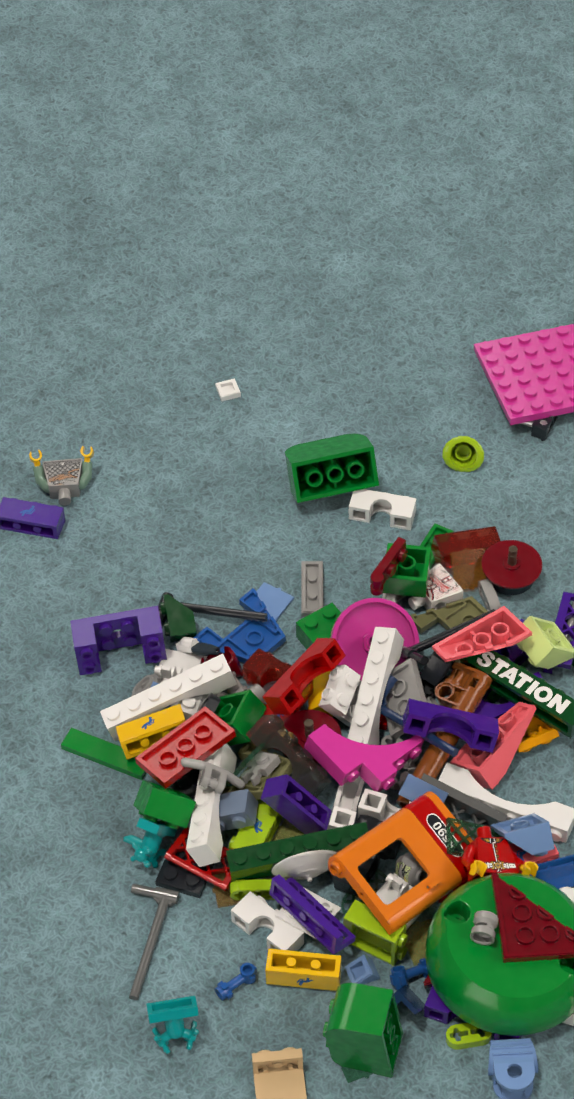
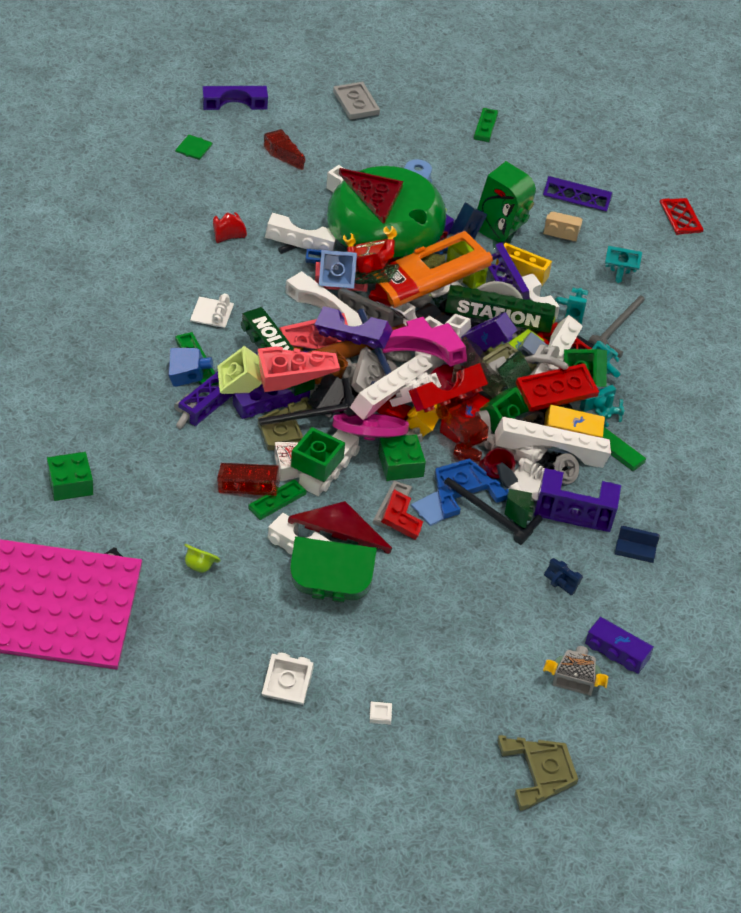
camera: 165 degrees left, 5 degrees down
(42, 633) = (637, 544): none -> dark blue panel
(63, 394) = (549, 767): none -> olive wing
(116, 571) = (562, 576): none -> dark blue hips
(126, 793) = (604, 404): none -> teal piece
(209, 917) = (575, 304): none -> teal piece
(246, 976) = (561, 280): blue bar -> none
(298, 562) = (397, 518): none -> red plate
(321, 381) = (288, 678): none -> white plate
(350, 538) = (342, 523): none -> dark red tile
(388, 566) = (339, 437): dark red plate -> none
(467, 567) = (257, 461): clear orange piece -> none
(483, 931) = (407, 194): light grey wheel -> none
(488, 595) = (253, 441): light grey beam -> none
(511, 566) = (223, 445): dark red piece -> none

